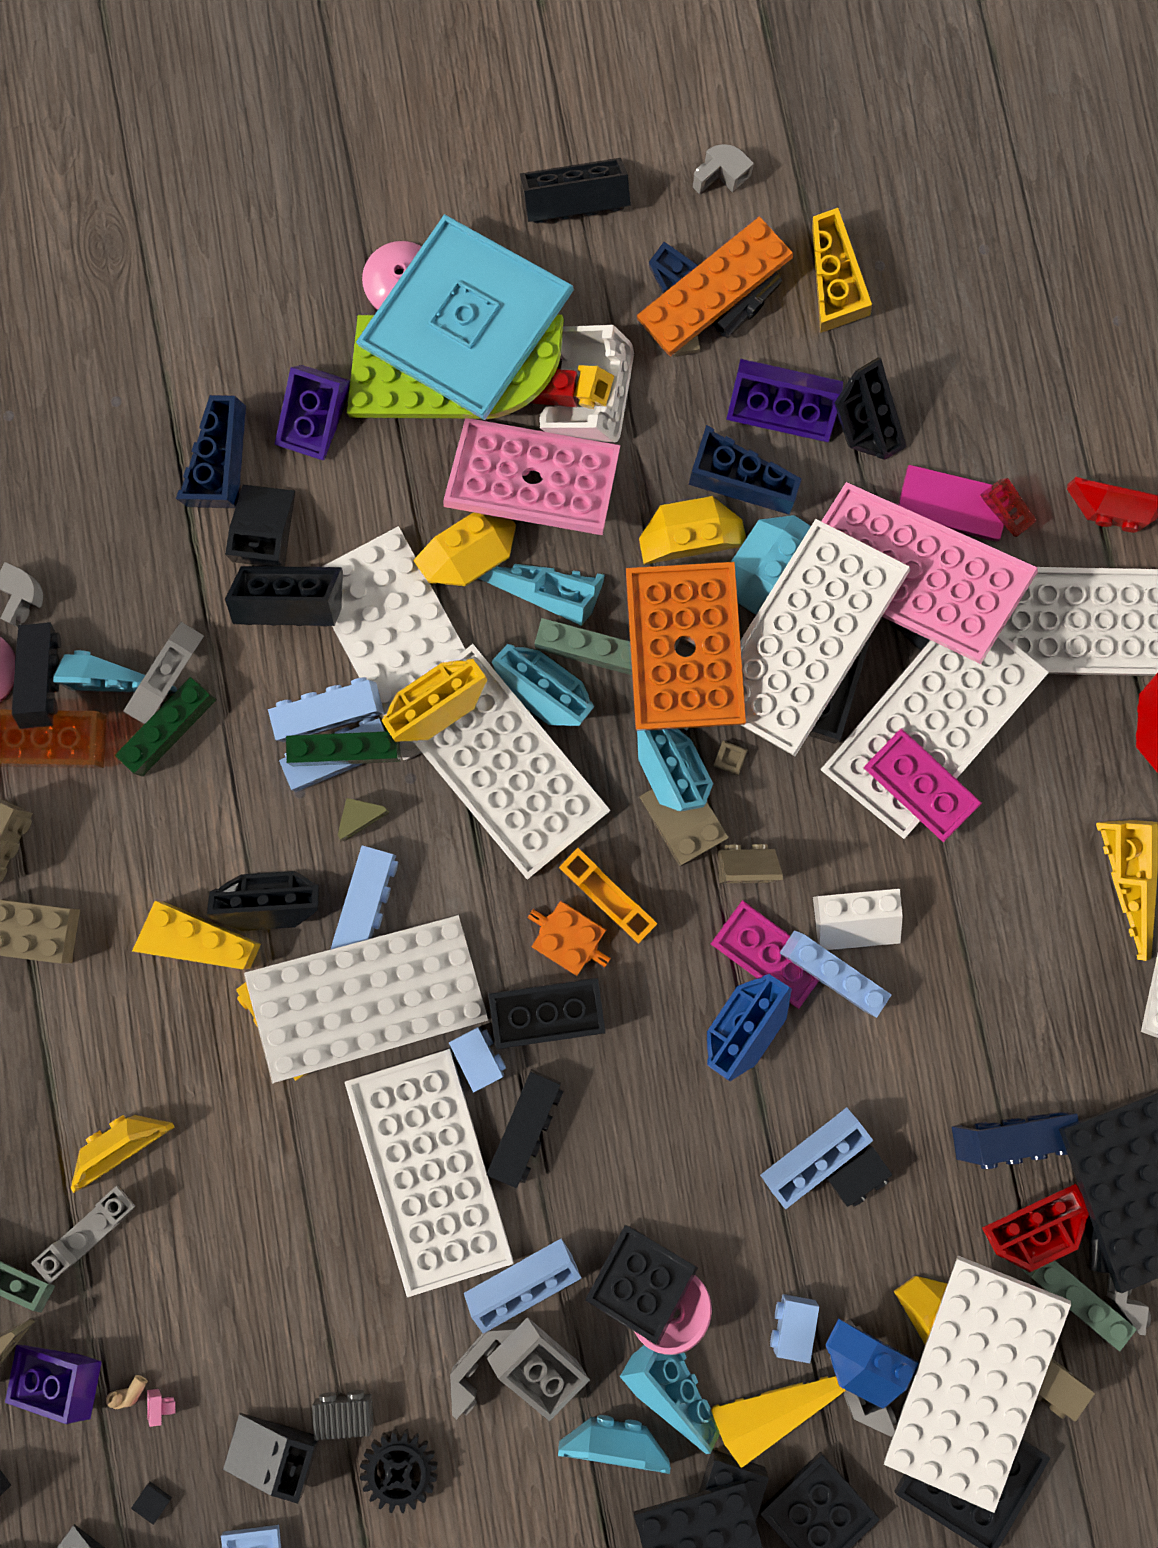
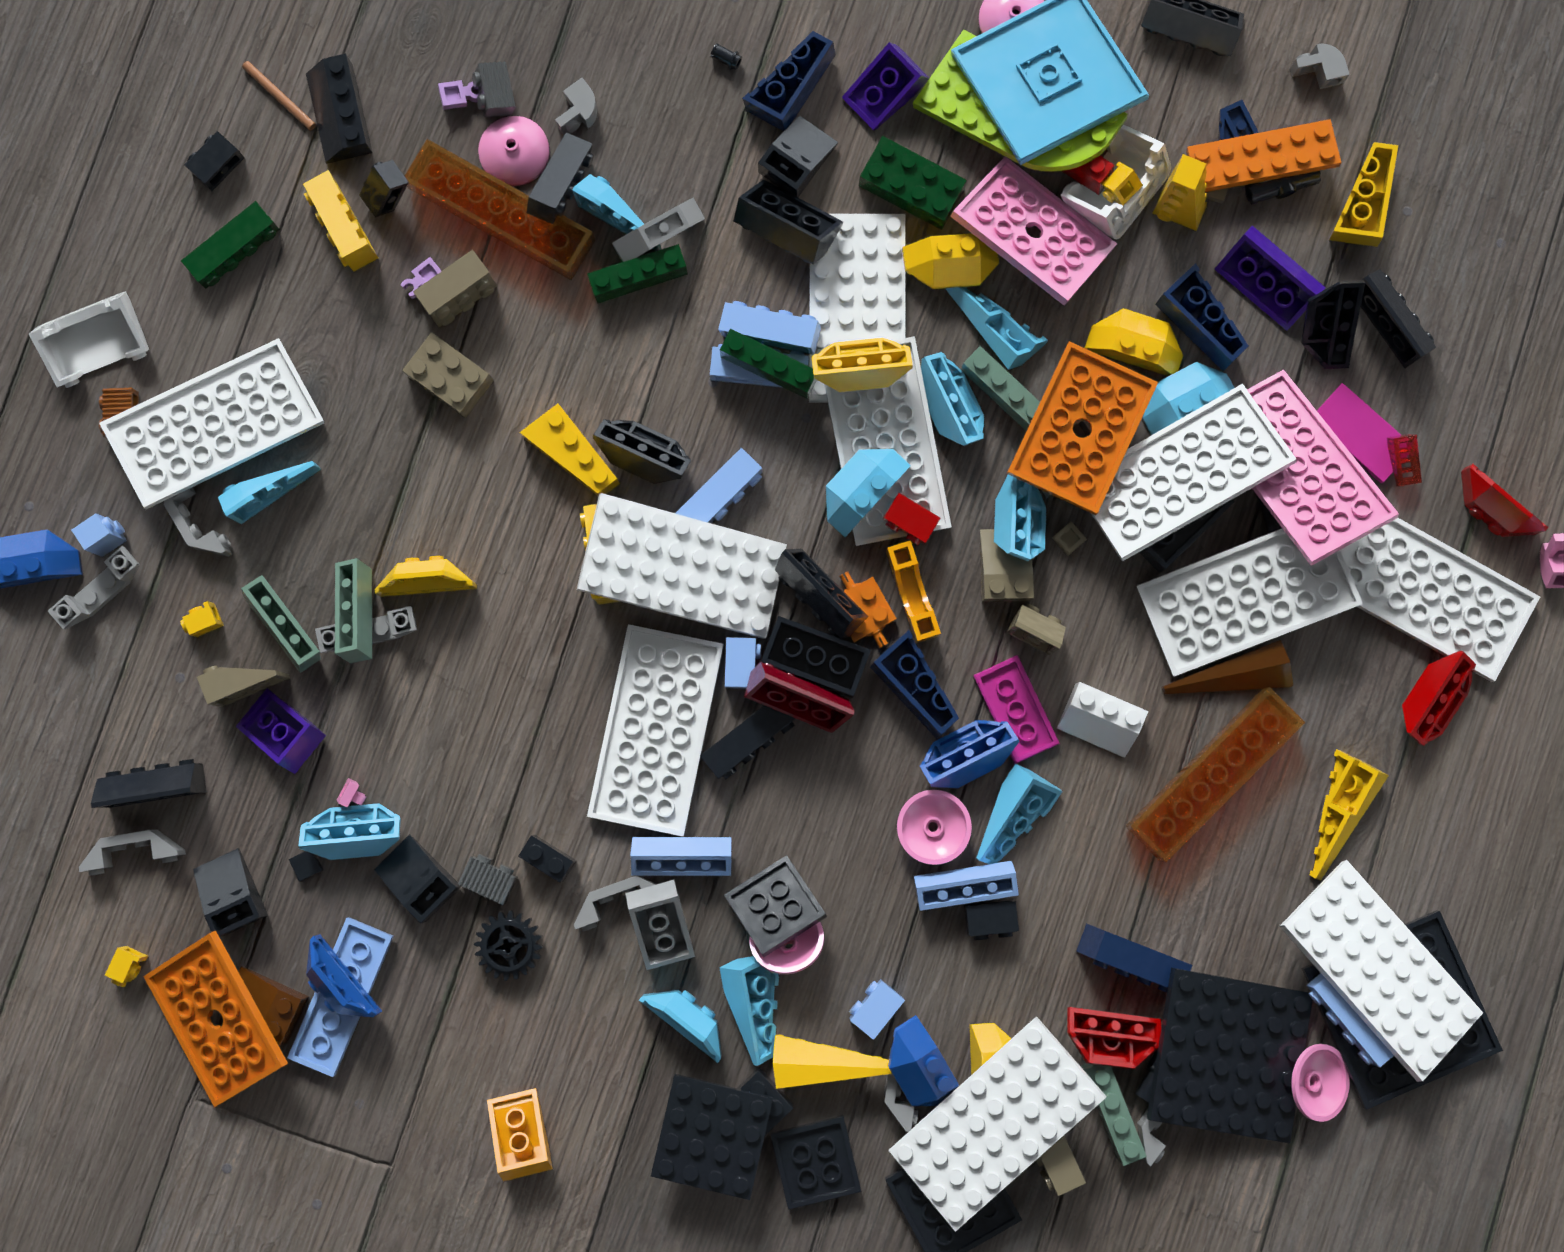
camera: 30 degrees right, 0 degrees up
(60, 1223) = (353, 610): none -> sand green brick
(126, 1397) = (331, 774): tan arm -> none
(139, 464) = (726, 56): none -> black pin
(177, 1447) = (351, 832): none -> medium azure wedge
(358, 816) = (750, 425): olive slope -> none
(388, 492) = (912, 182): none -> dark green brick
(390, 1362) = (547, 858): none -> black brick
(500, 819) = (861, 486): none -> medium azure wedge
(517, 947) = (819, 592): none -> black slope
(551, 1064) = (798, 698): none -> dark red slope
(567, 826) = (911, 519): none -> red brick
(655, 984) = (912, 681): none -> dark blue wedge
(658, 363) = (1184, 194): none -> yellow wedge
(757, 1137) = (952, 827): none -> bright pink dish
(823, 1046) = (1018, 805): none -> medium azure wedge
(835, 973) = (1060, 750): light blue brick -> none
(922, 785) = (1211, 640): dark pink tile -> none
(926, 378) = (1394, 319): none -> black slope
(987, 779) = (1254, 670): none -> reddish brown wedge
(996, 914) = (1215, 774): none -> clear orange brick

